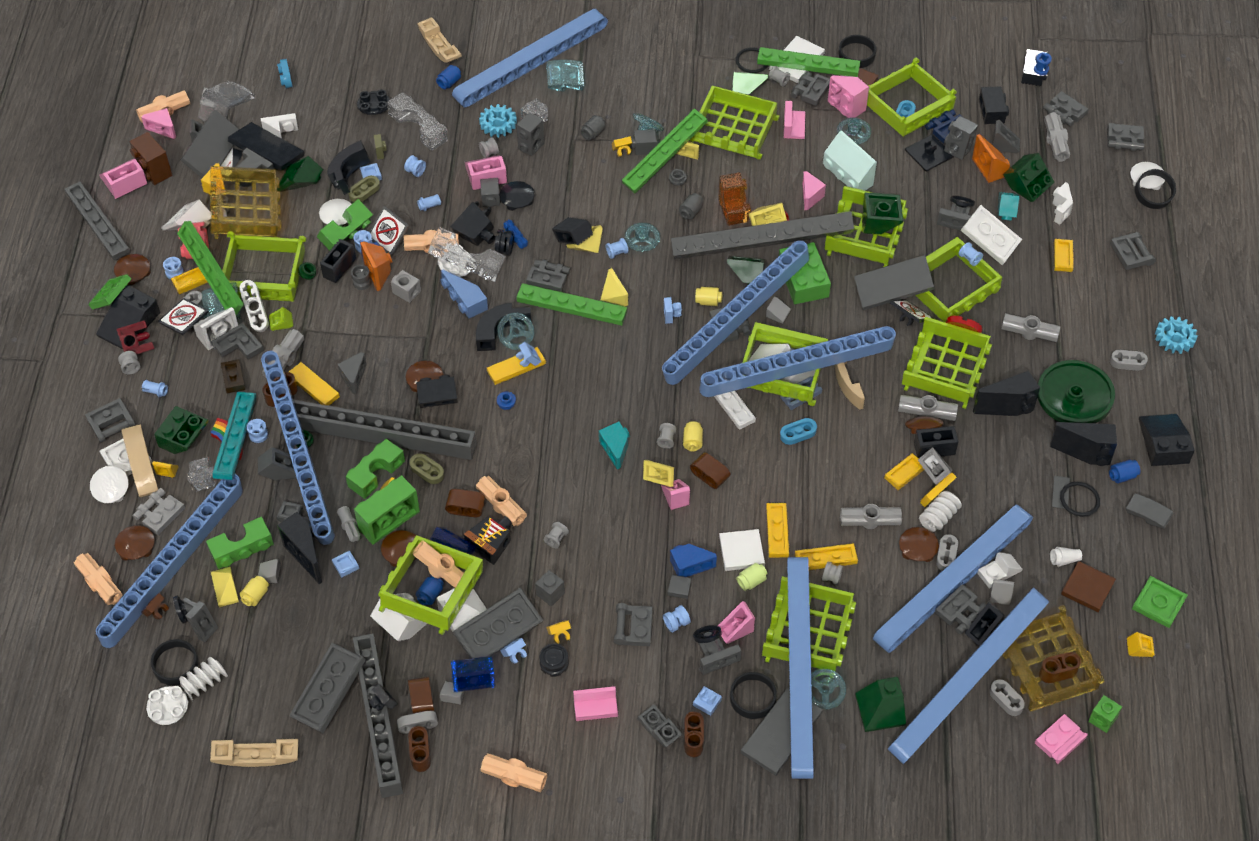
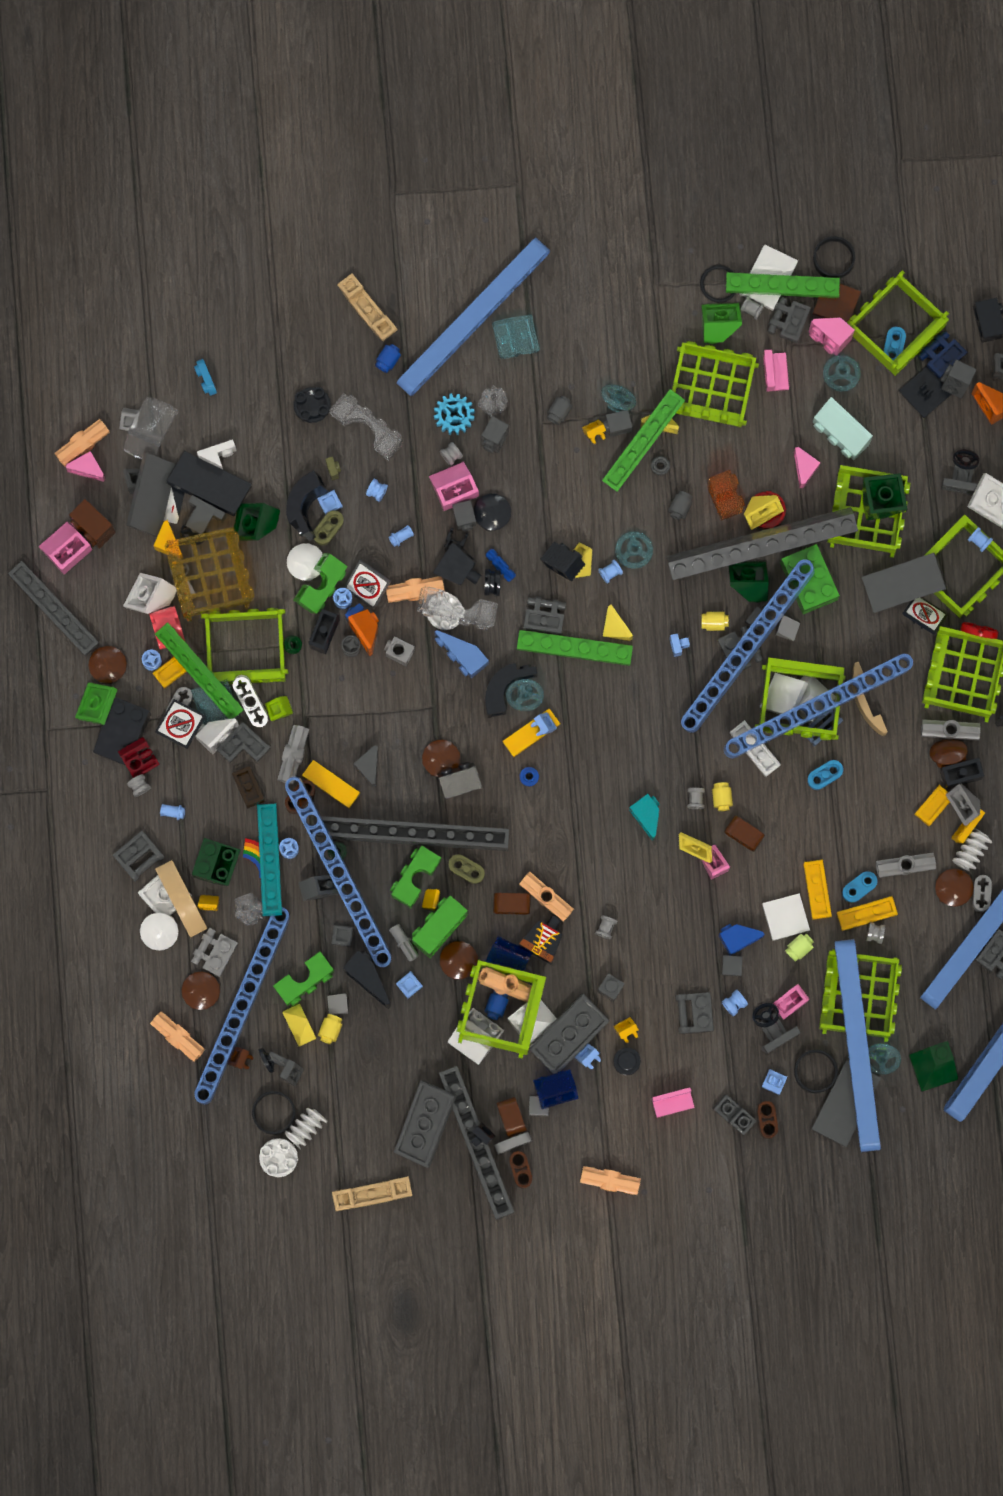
camera: 10 degrees left, 25 degrees up
(822, 532) = (859, 886): none -> dark azure plate

